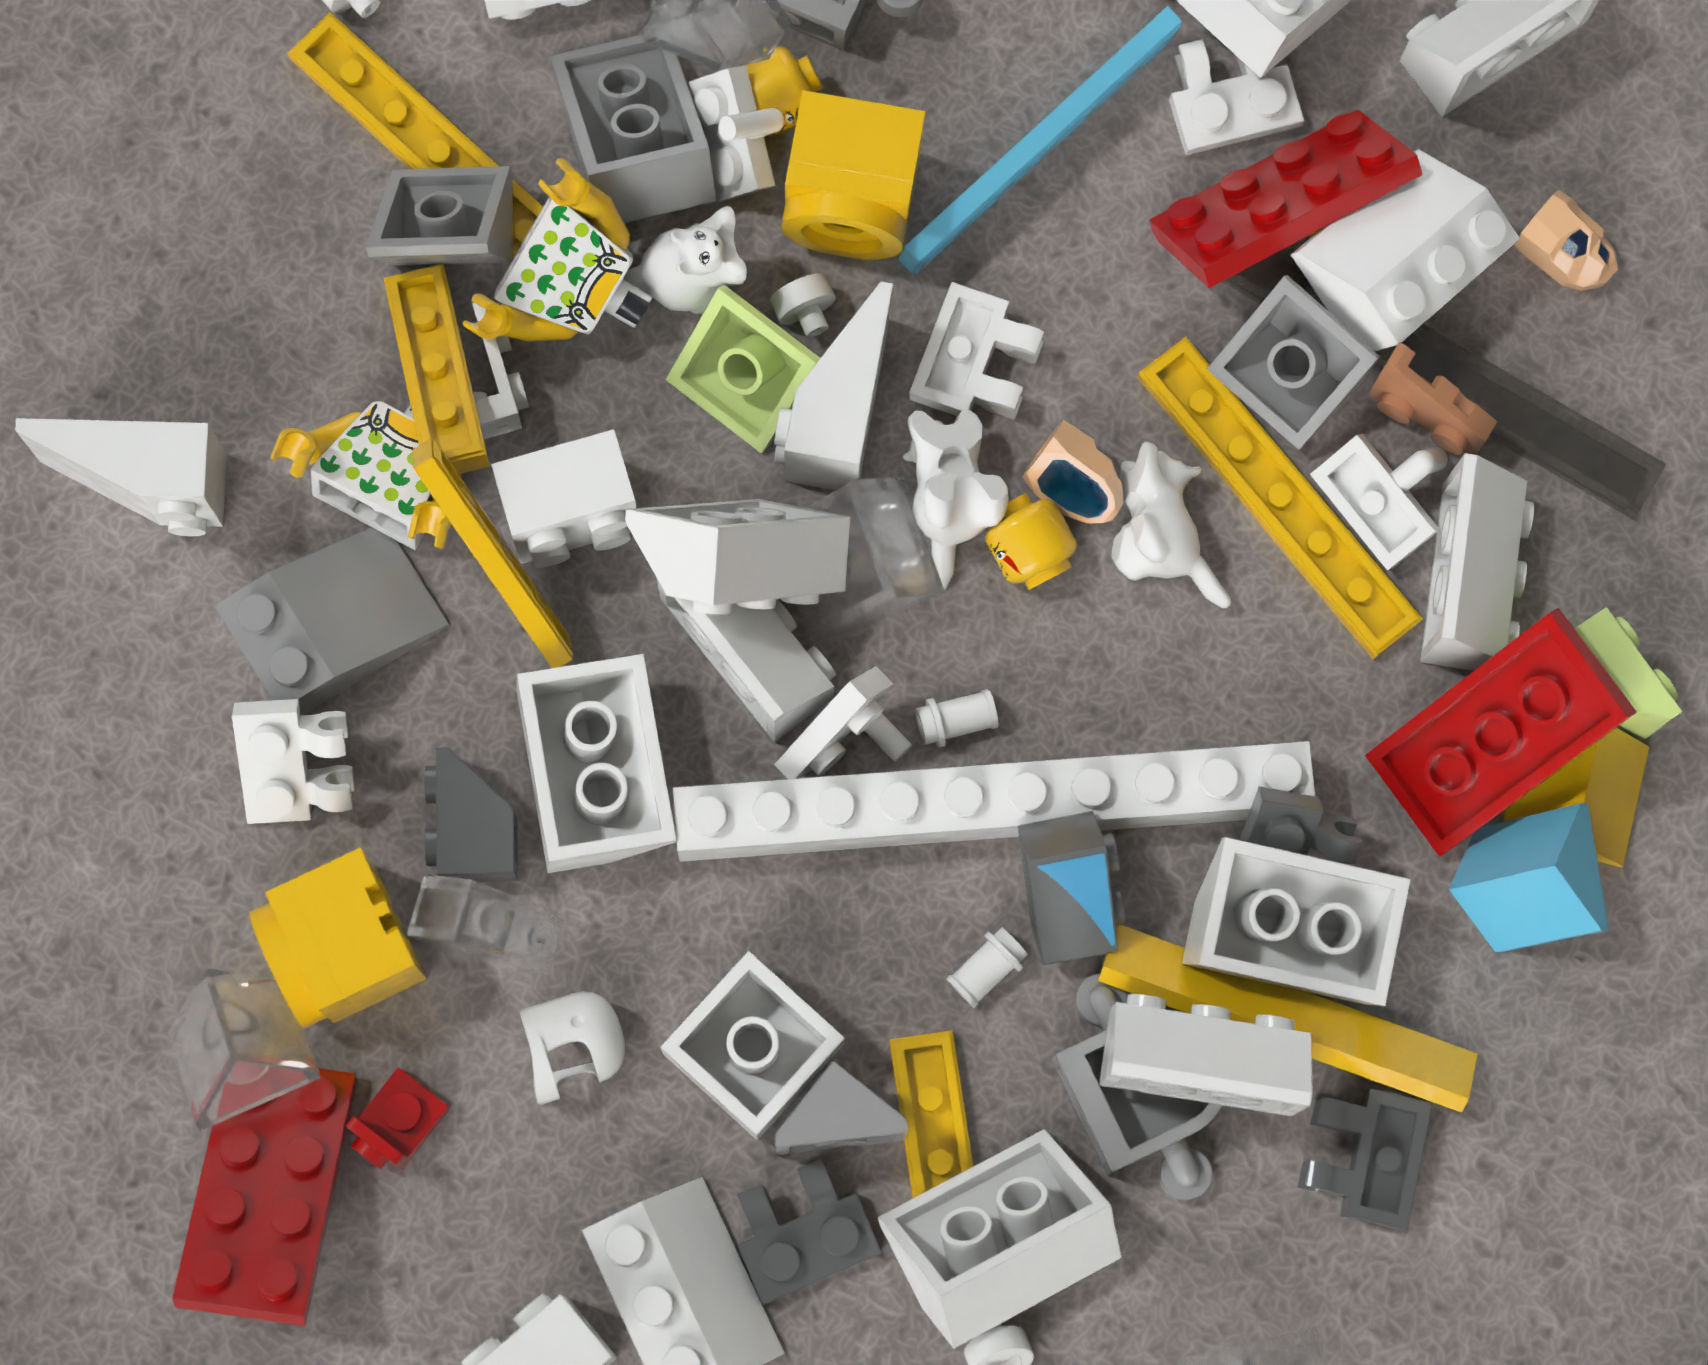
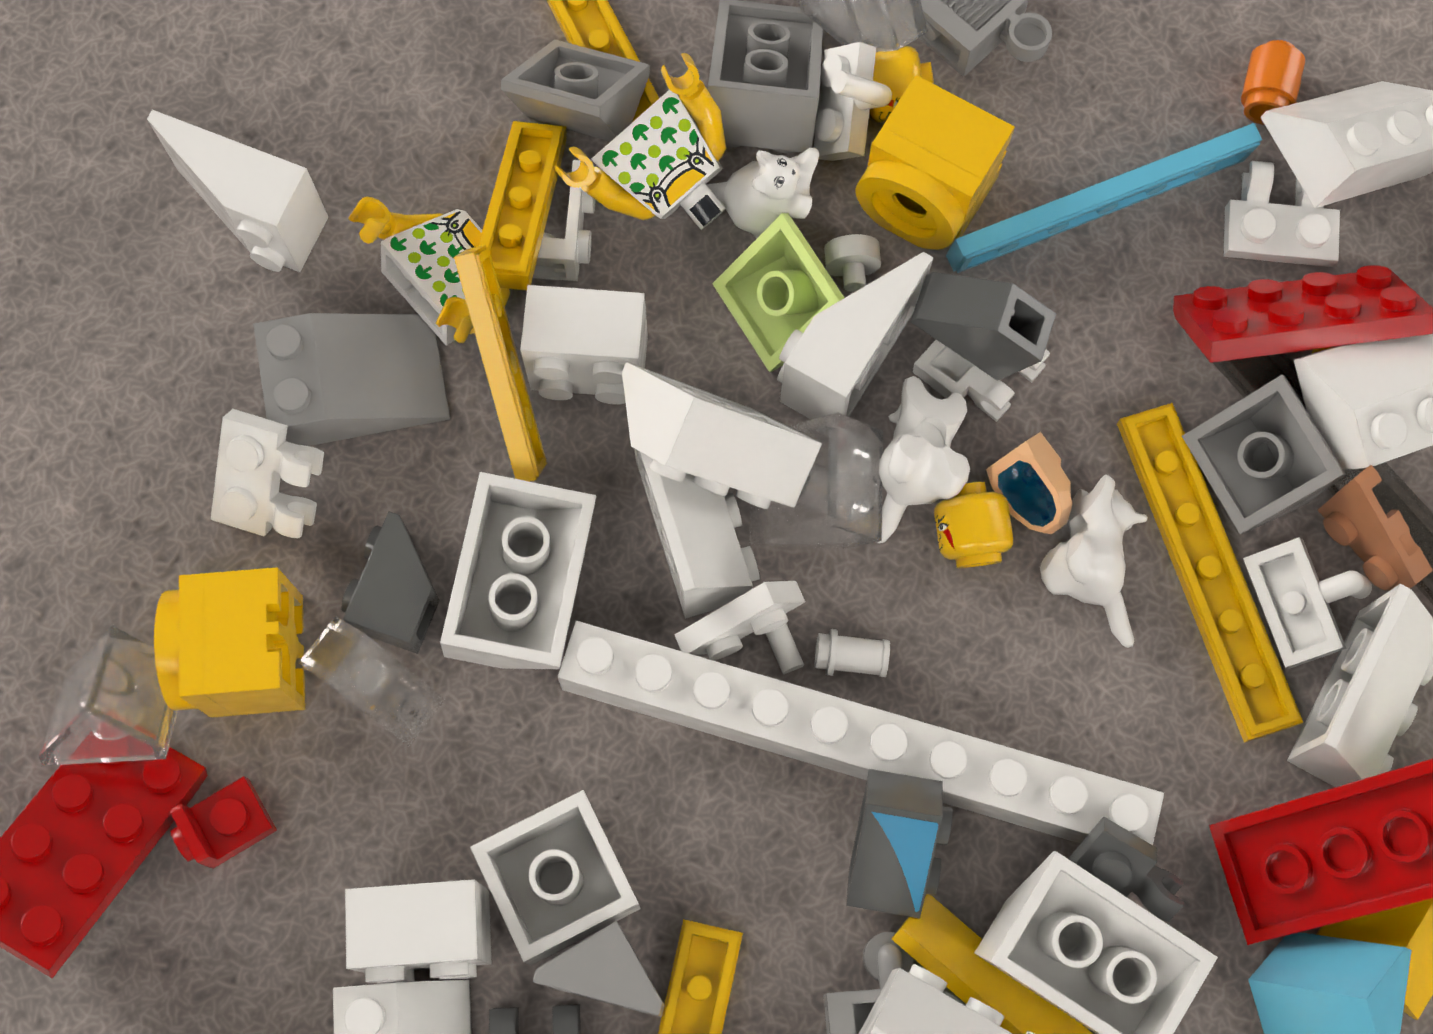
camera: 25 degrees right, 5 degrees down
(569, 1019) = (413, 793): white helmet -> none
(641, 1145) = (418, 929): none -> white brick
(967, 330) = (984, 322): none -> dark grey slope
(987, 966) = (796, 887): white pin -> none

